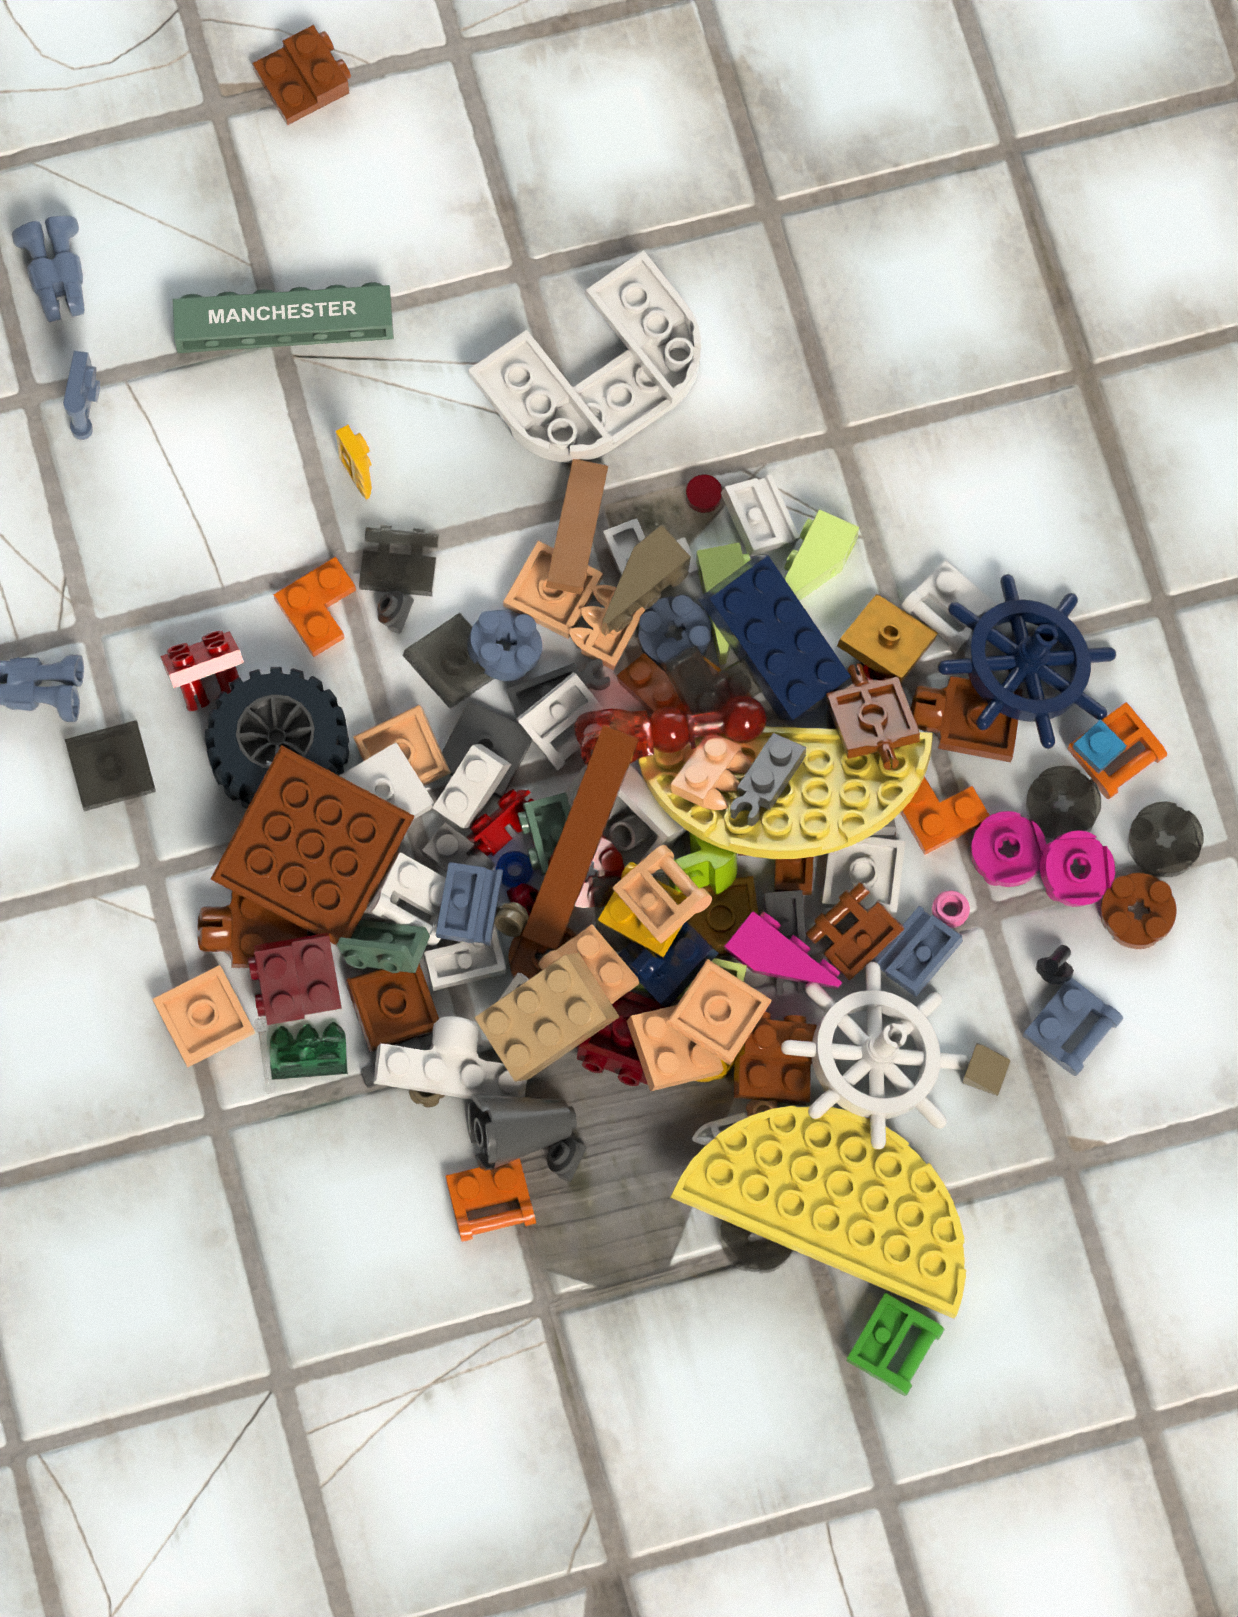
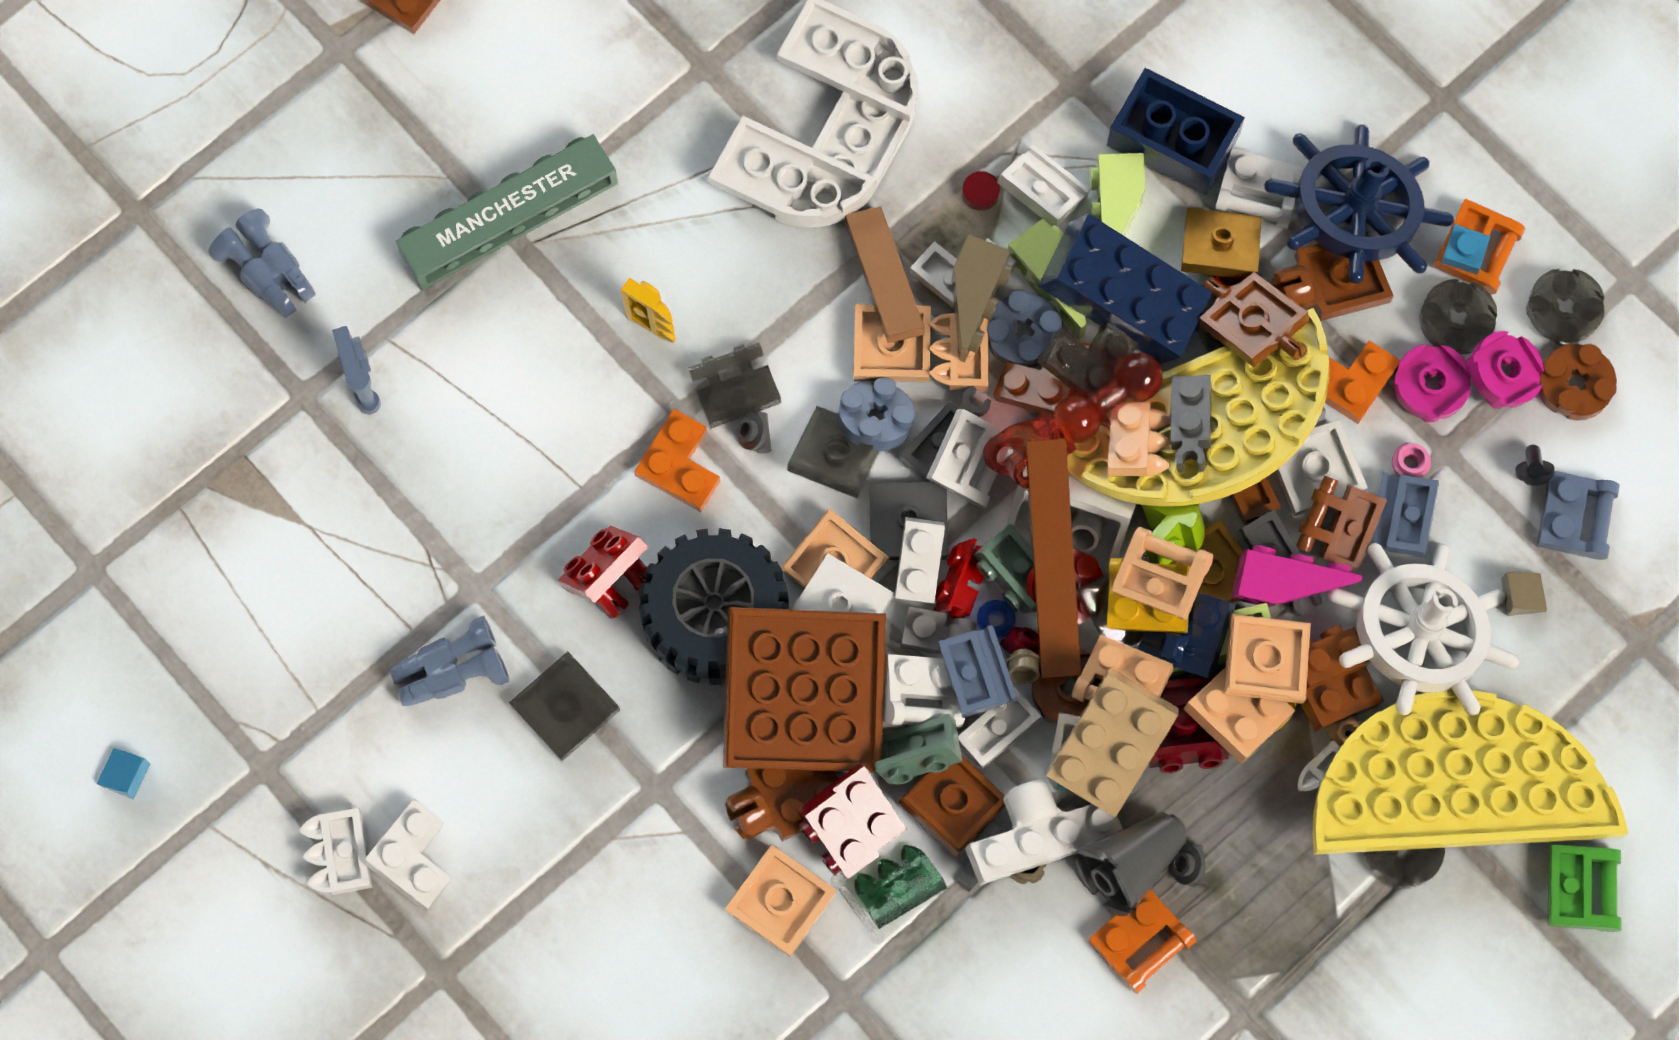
camera: 25 degrees left, 0 degrees up
(899, 521) = (1175, 130): none -> dark blue brick

